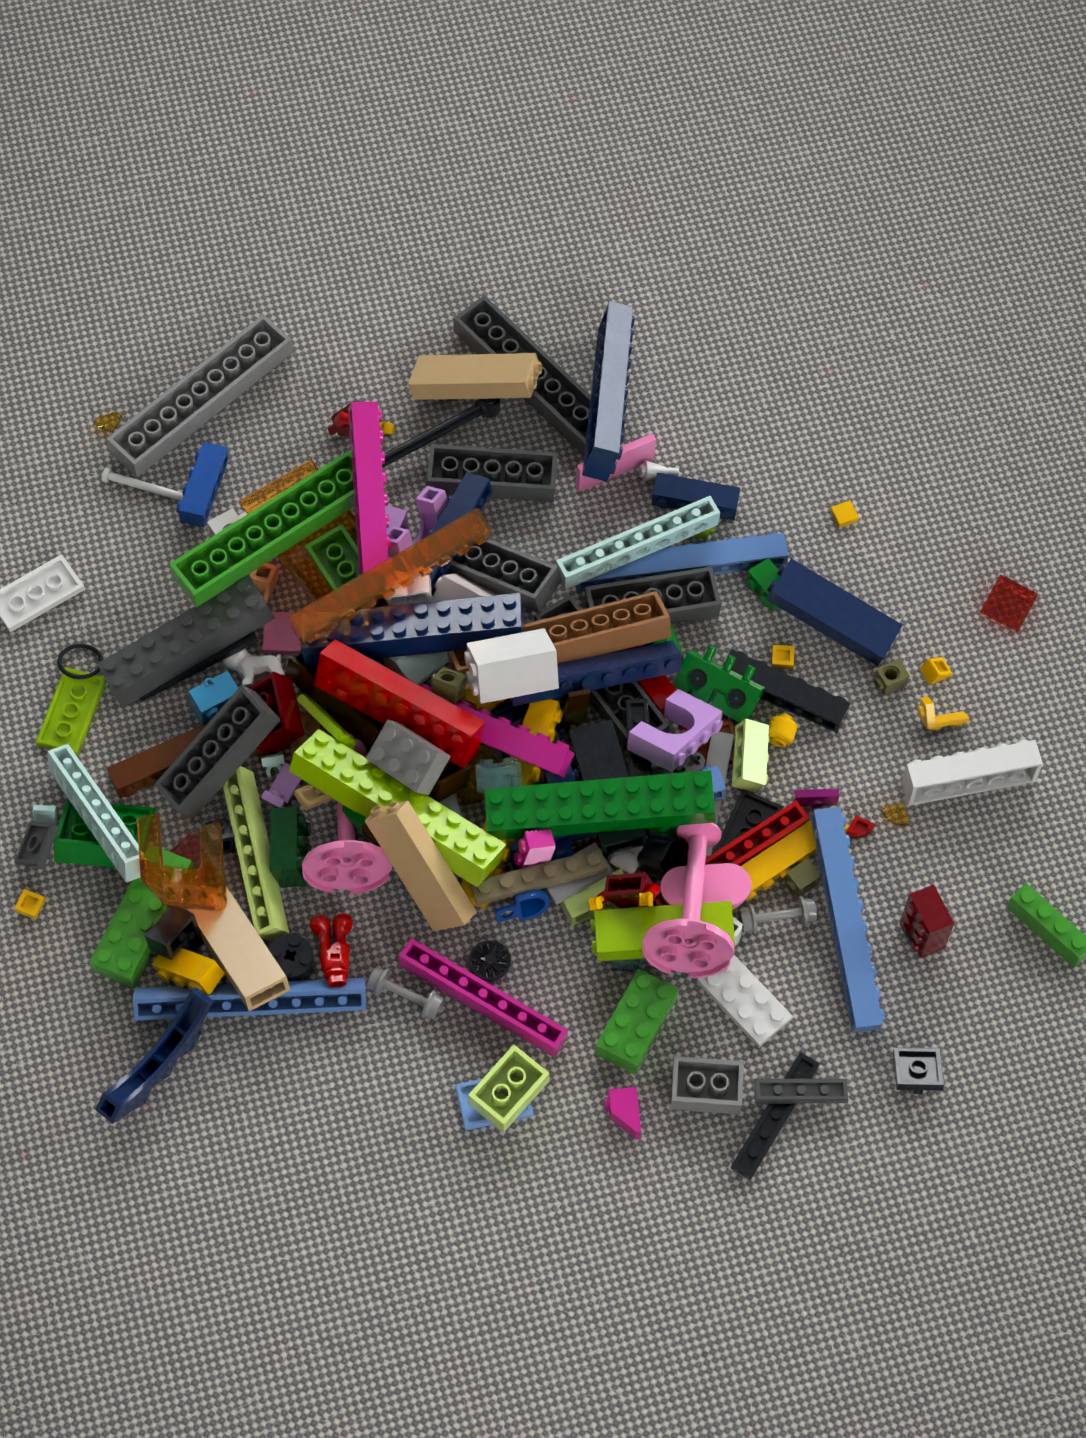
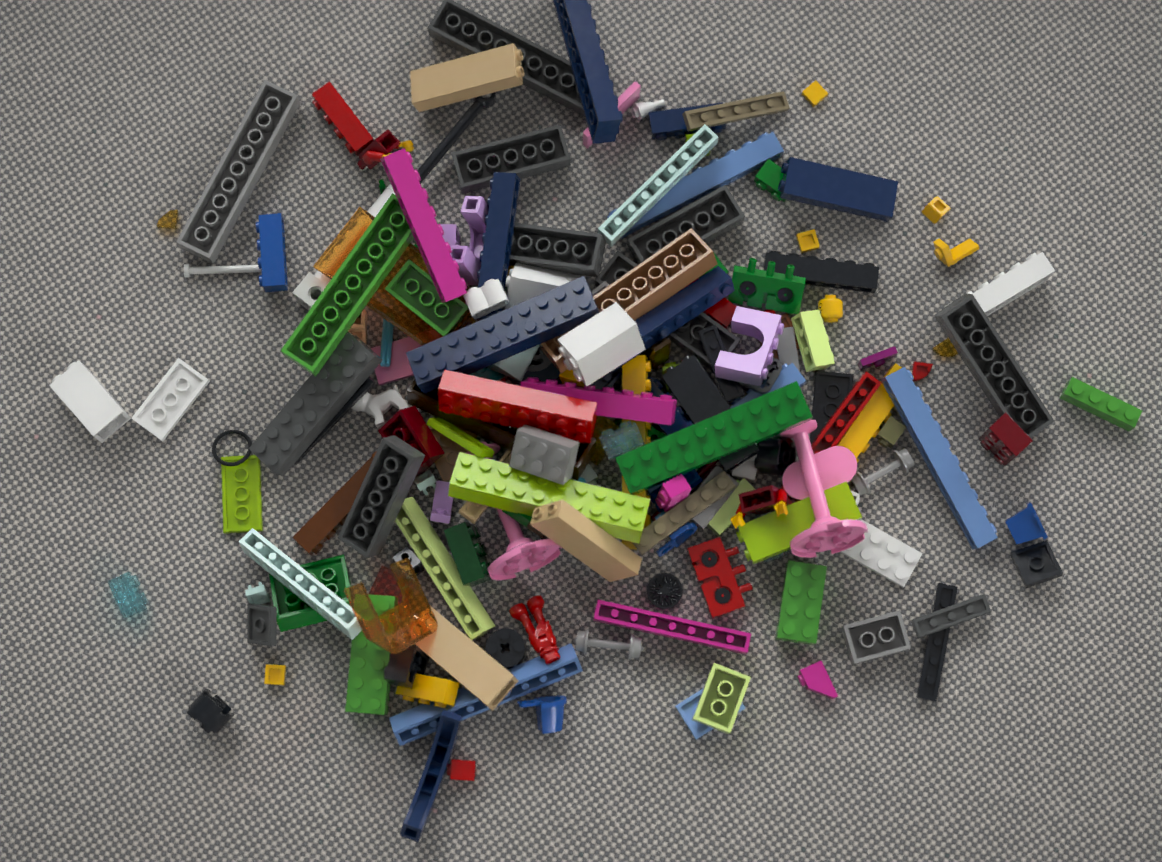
camera: 15 degrees left, 15 degrees up
(192, 1071) = (461, 770): none -> red brick
(209, 699) = (359, 446): dark azure brick -> none
(287, 609) = (386, 343): none -> medium azure axle
(312, 1041) = (548, 712): none -> blue container
(329, 377) = (342, 118): none -> red brick
(389, 575) = (470, 297): clear orange brick -> none
(449, 684) = (552, 375): olive brick -> none
(554, 965) = (718, 578): none -> red piece
(751, 499) = (736, 111): none -> dark tan plate
(894, 669) = (906, 223): olive brick -> none
(920, 1021) = (1026, 525): none -> blue container
(939, 836) = (993, 364): none -> dark grey brick
(1009, 602) = (977, 128): clear red bracket -> none

